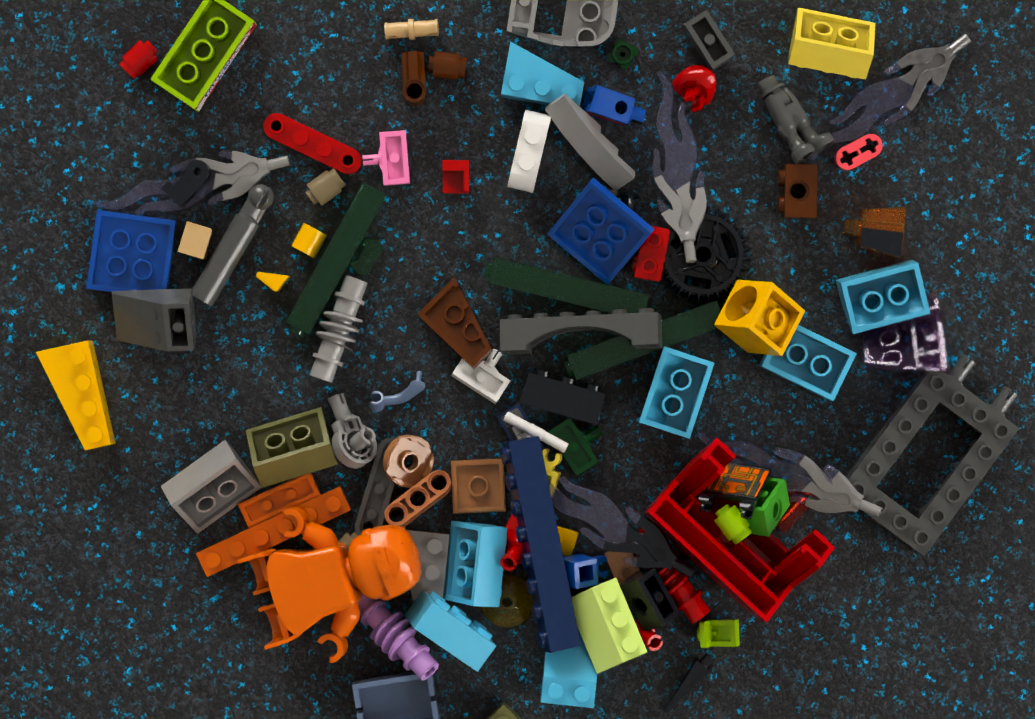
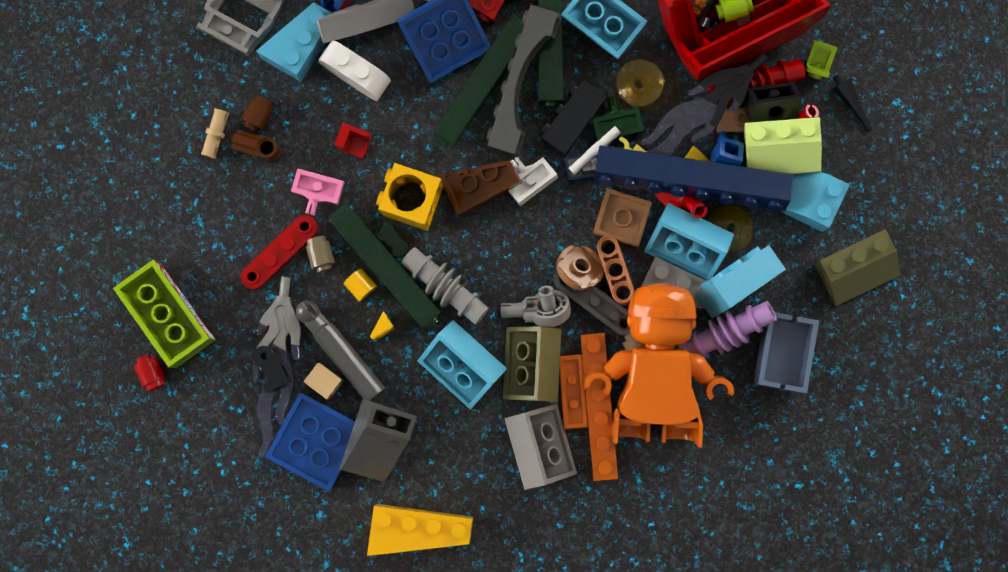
camera: 70 degrees left, 5 degrees down
(264, 375) = (461, 364): none -> medium azure slope
(398, 276) = (420, 216): none -> yellow brick
(412, 390) = (520, 242): sand blue piece -> none
(636, 463) = (644, 72): none -> clear yellow dish

